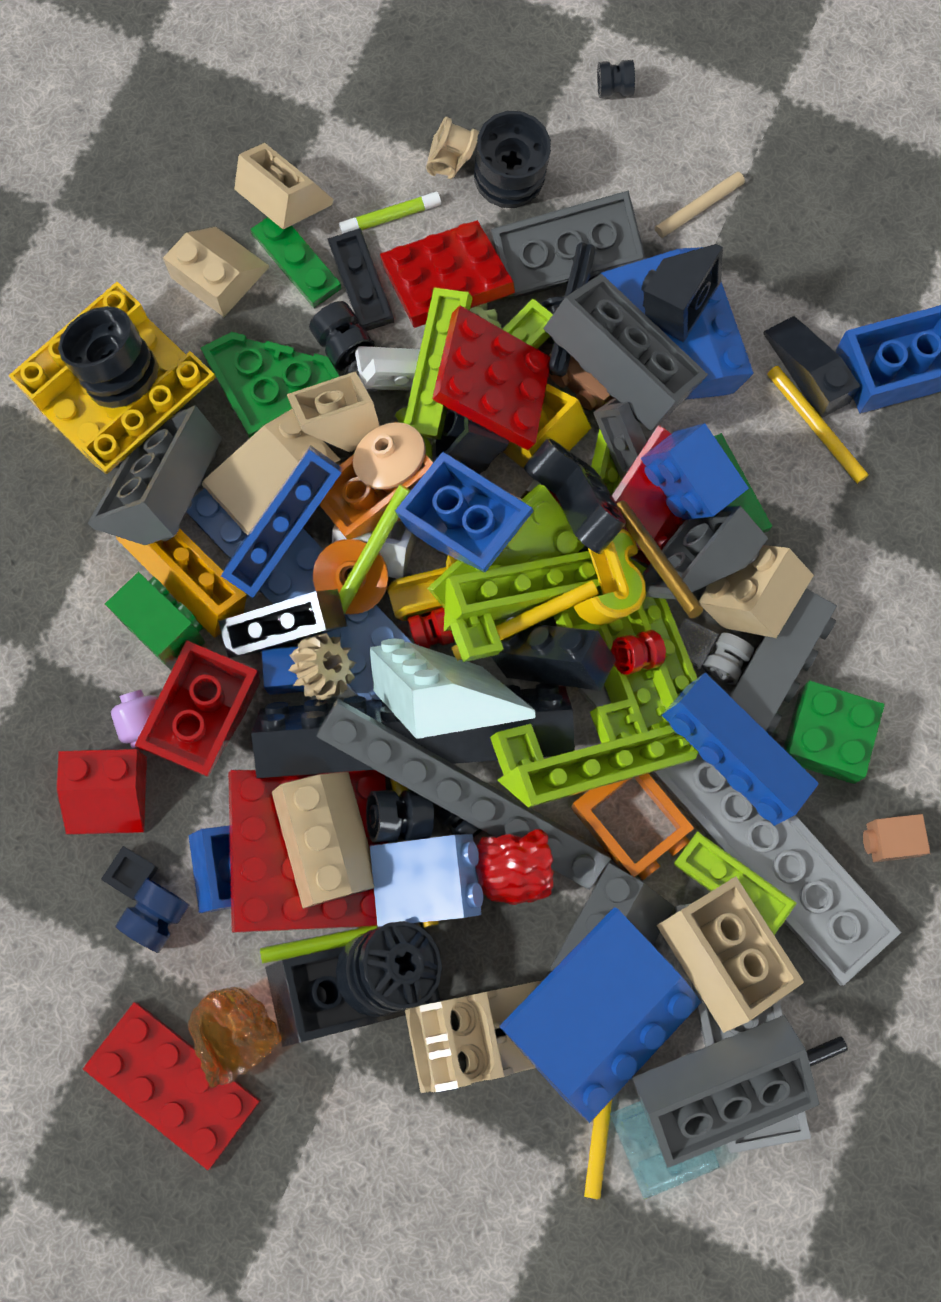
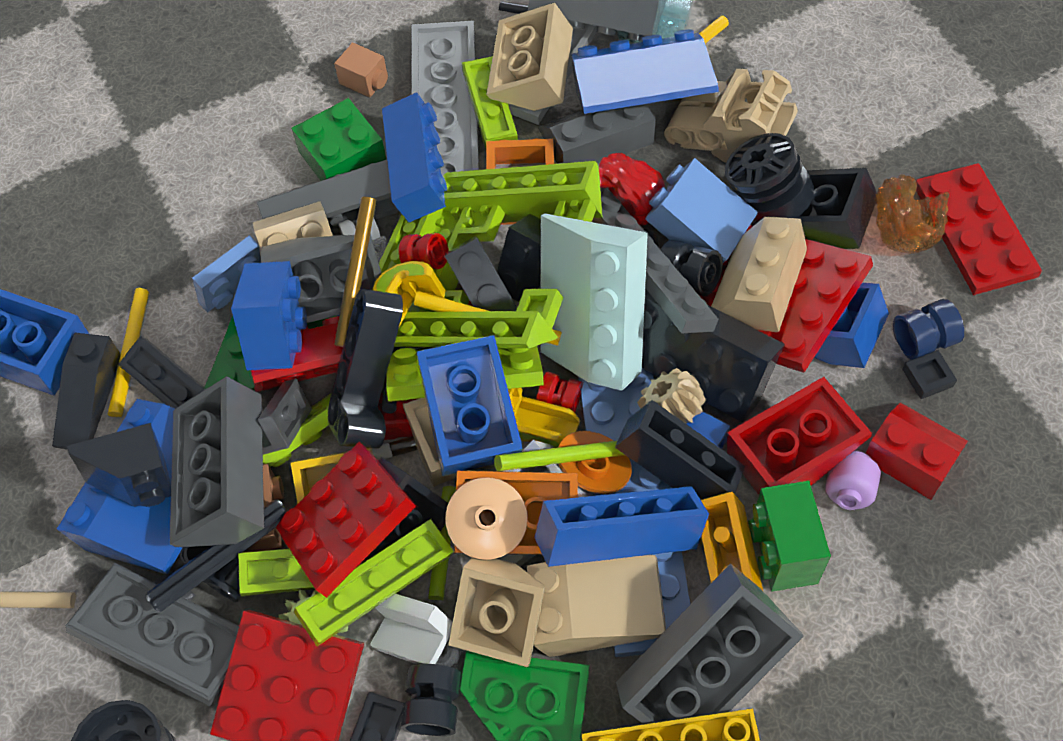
camera: 140 degrees left, 15 degrees down
(753, 415) = (160, 374): none -> black tile
(792, 509) = (221, 278): none -> medium blue plate

